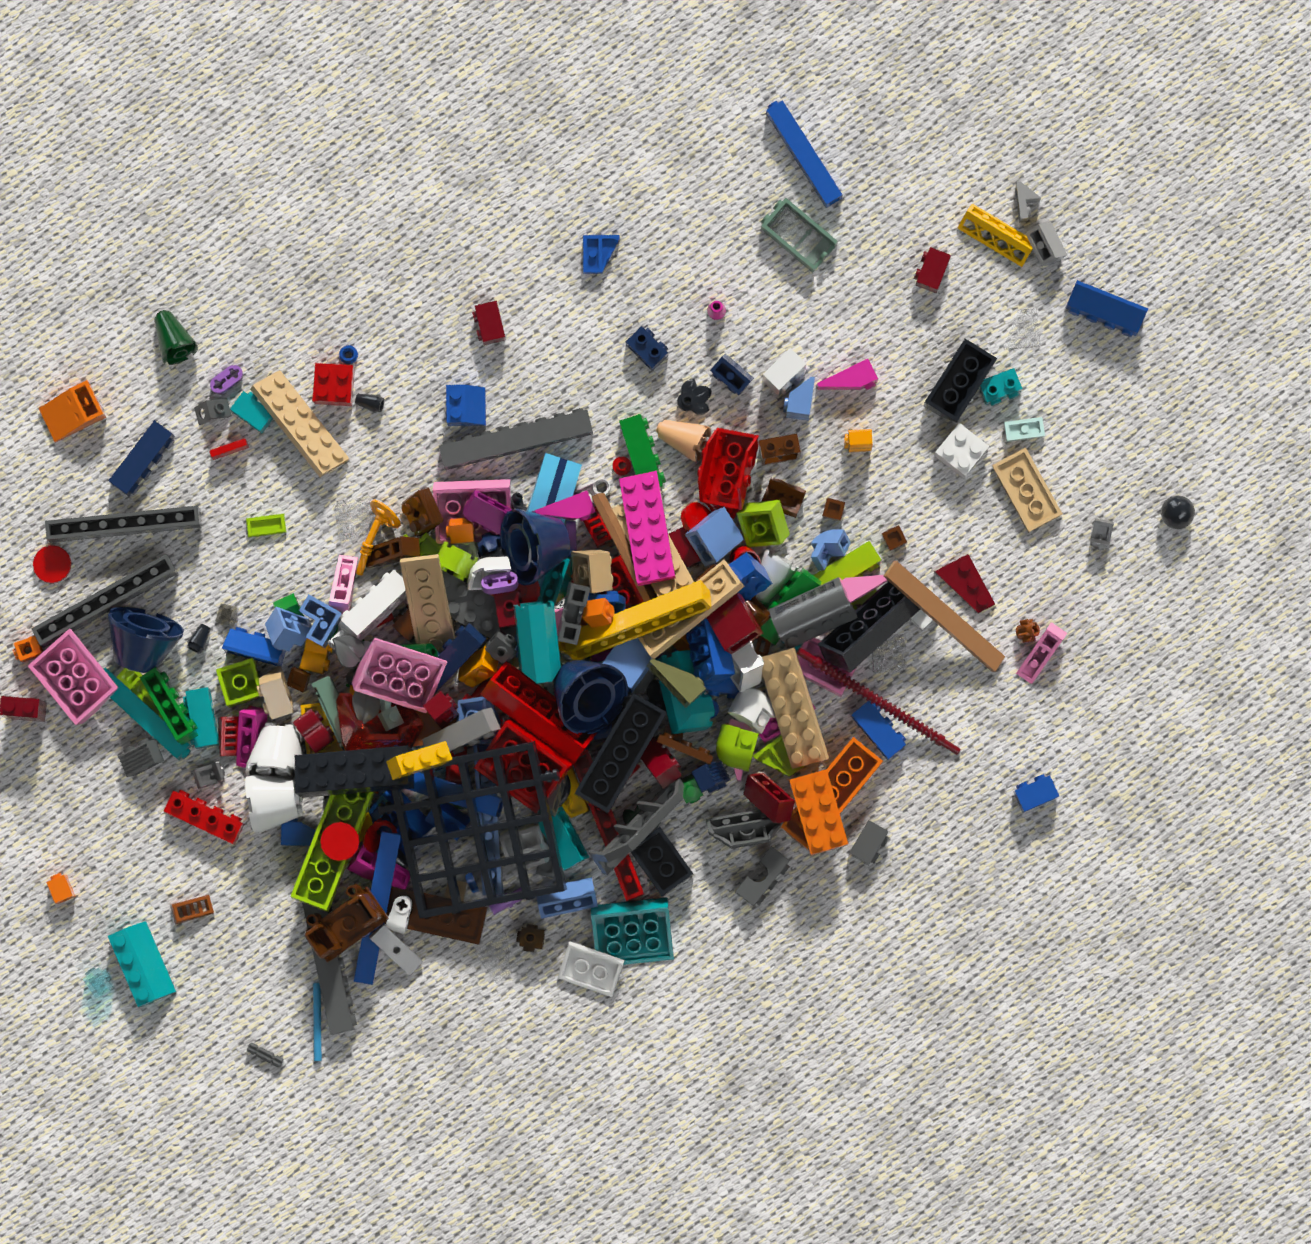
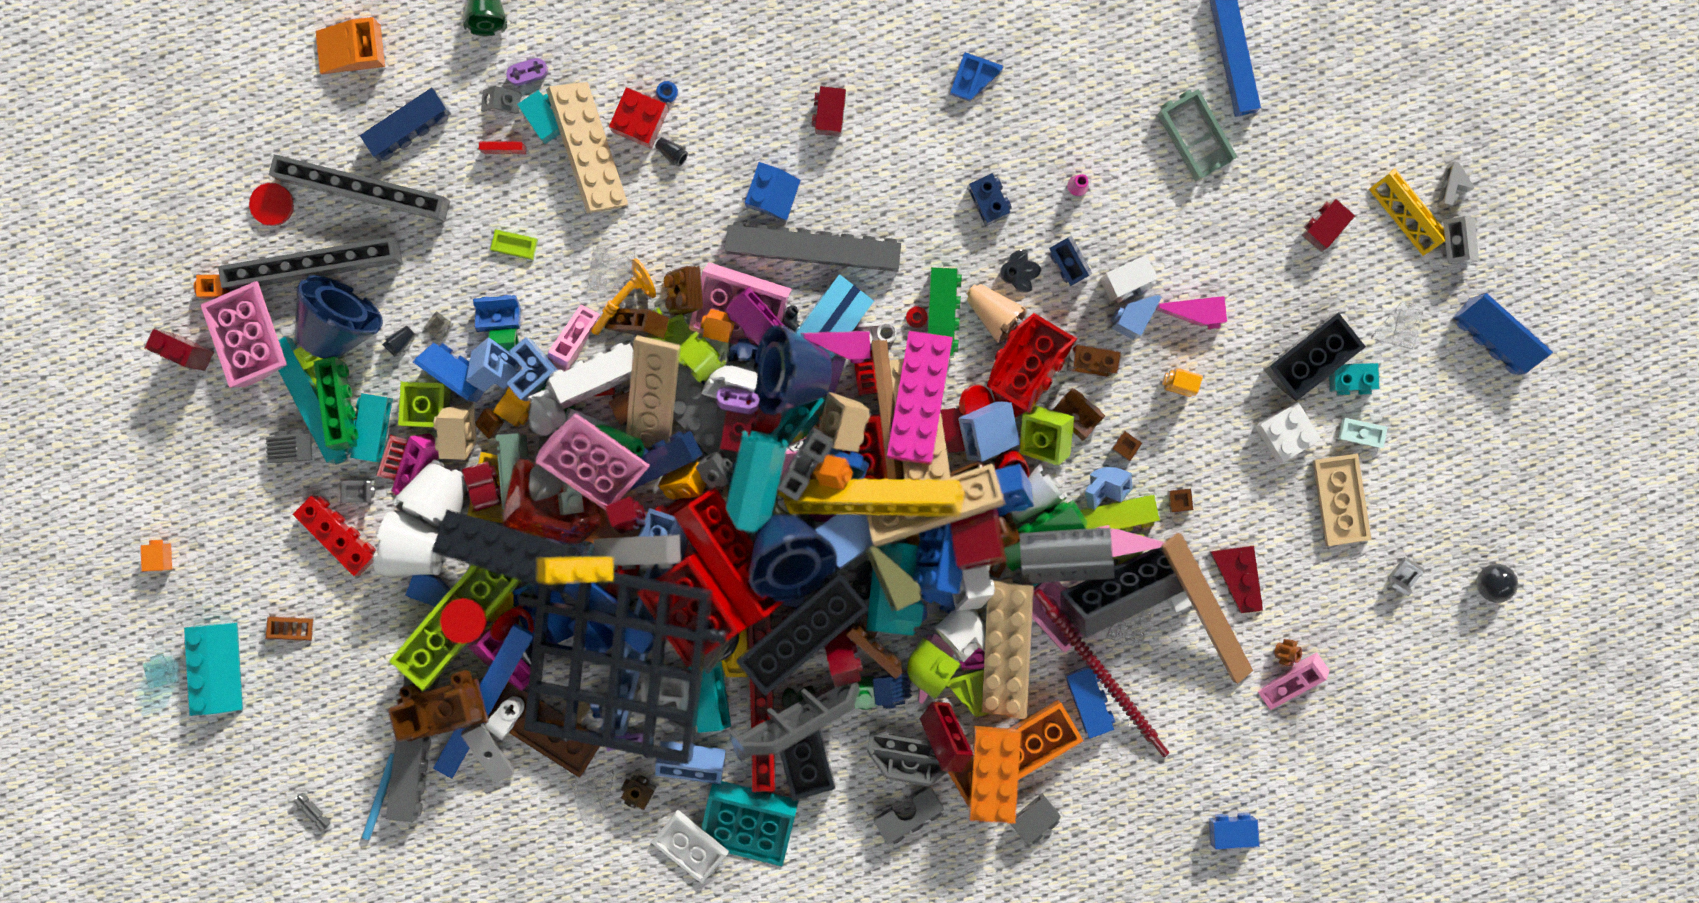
camera: 15 degrees right, 5 degrees up
(273, 586) = (497, 313): none -> blue bracket

